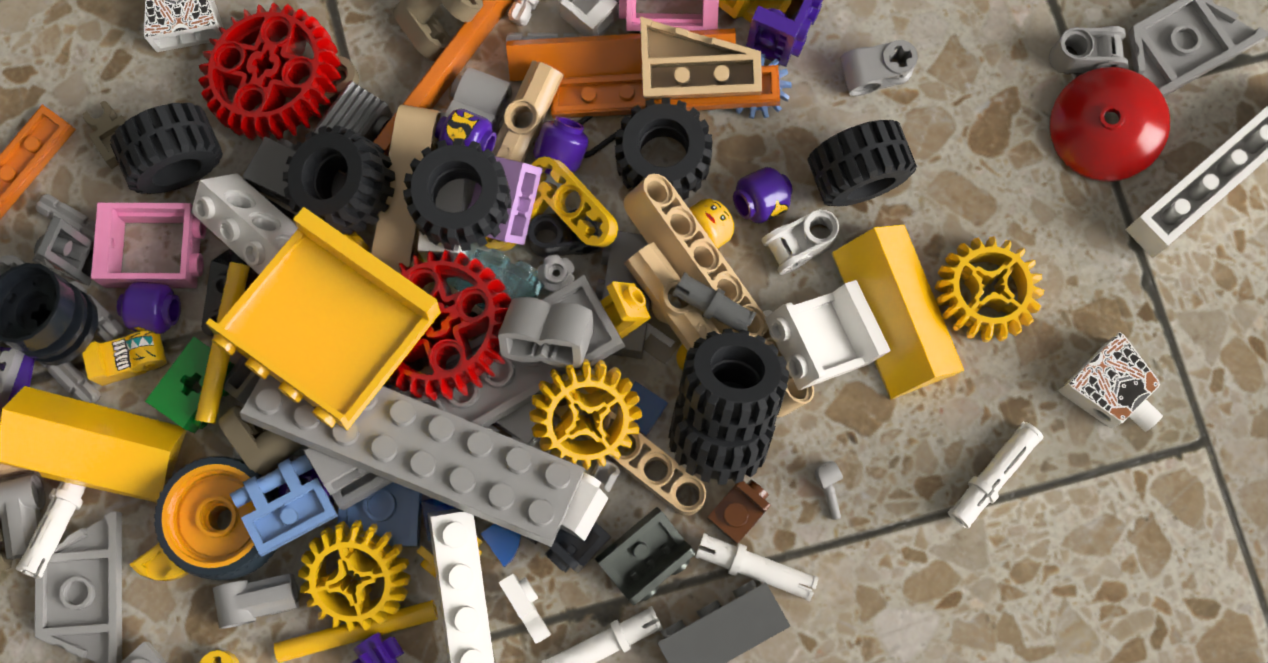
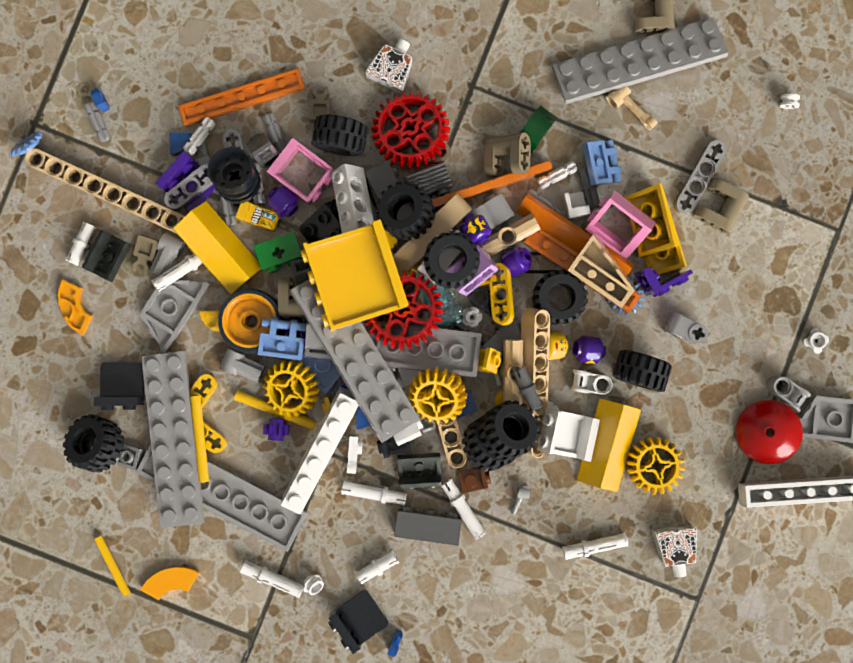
camera: 30 degrees right, 10 degrees up
(218, 359) = (312, 237): yellow piece -> none
(546, 332) = (445, 349): light grey brick -> none

